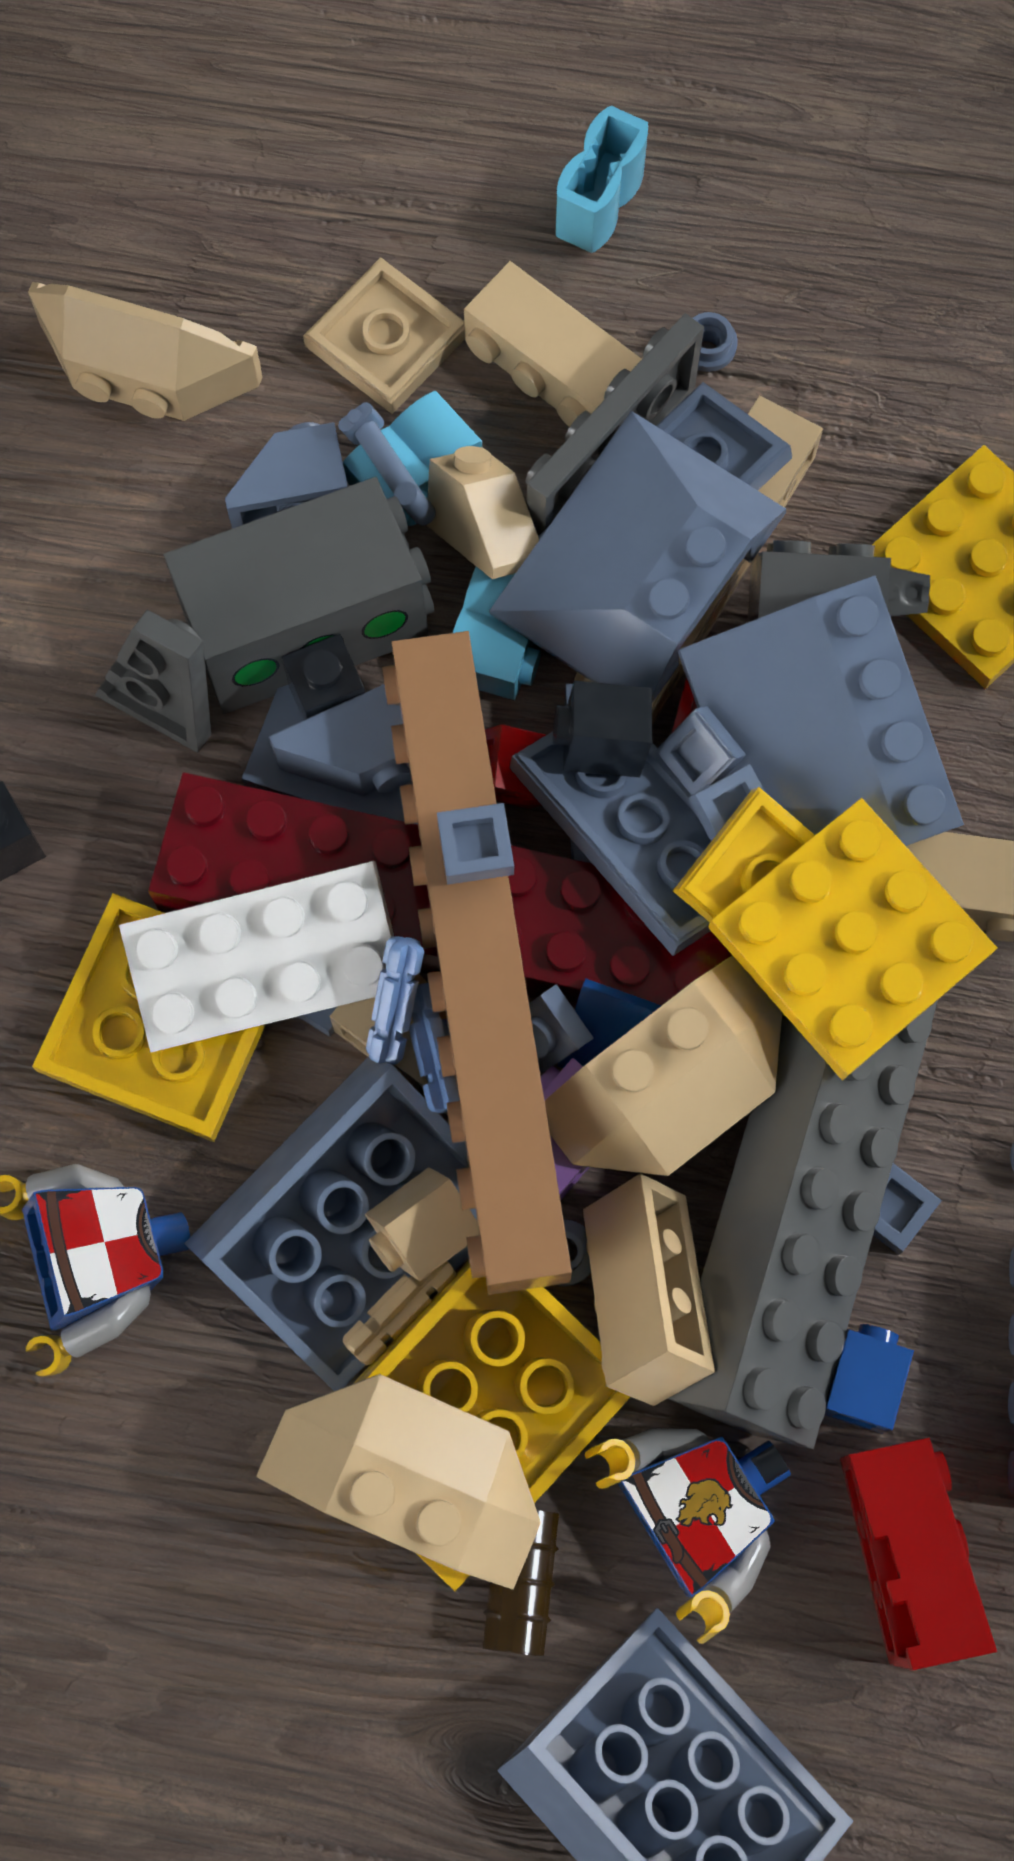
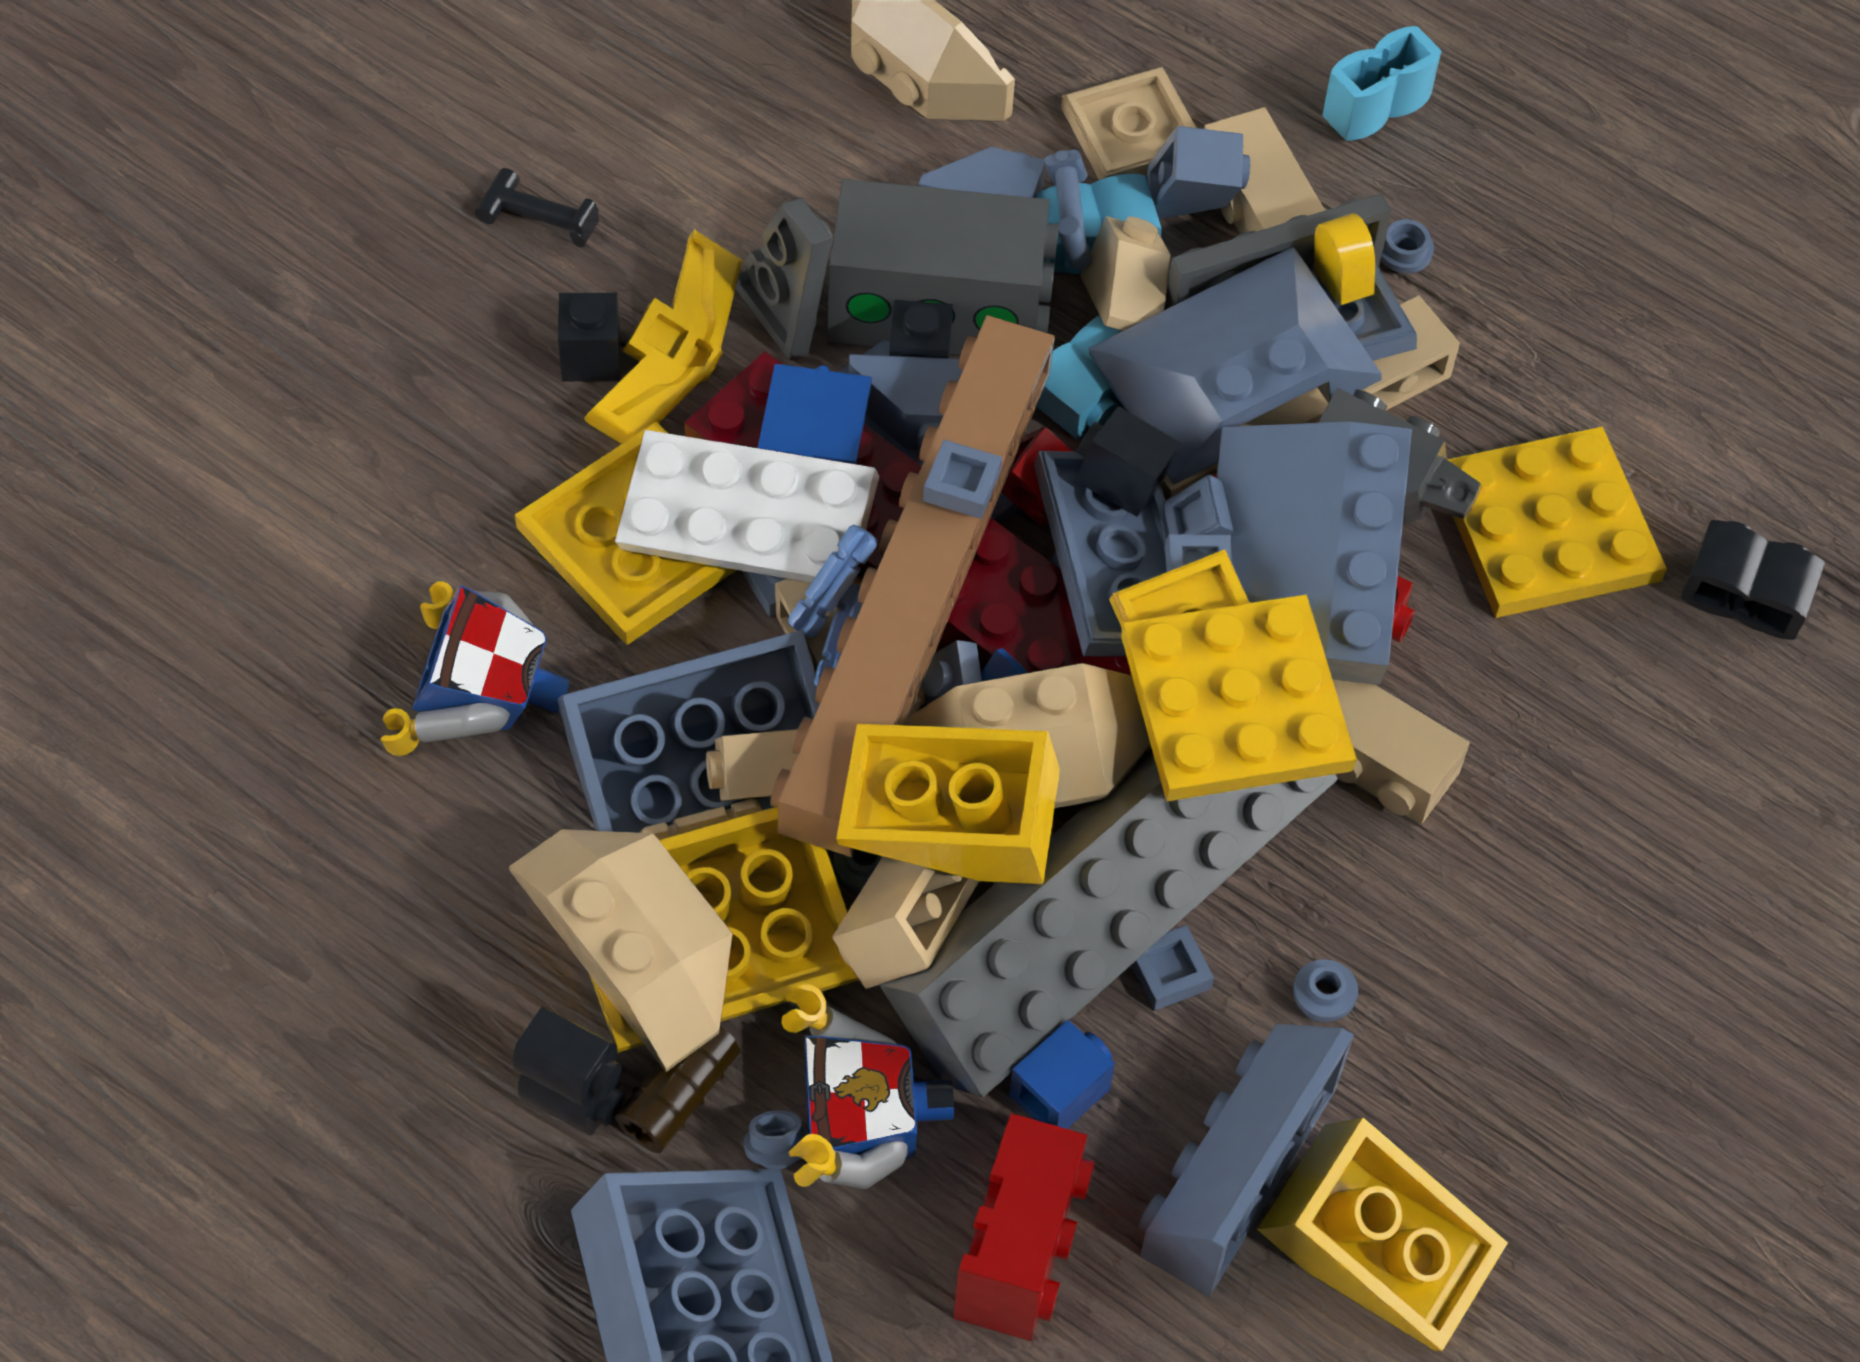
camera: 25 degrees right, 15 degrees down
(81, 797) = (673, 344): none -> yellow plate
(274, 823) = (815, 413): none -> blue piece
(424, 1642) = (568, 1071): none -> black brick
(487, 365) = (1197, 171): none -> sand blue slope
(633, 1574) = (772, 1137): none -> sand blue plate
(649, 1197) = (953, 799): none -> yellow slope
(686, 399) = (1345, 258): none -> yellow piece

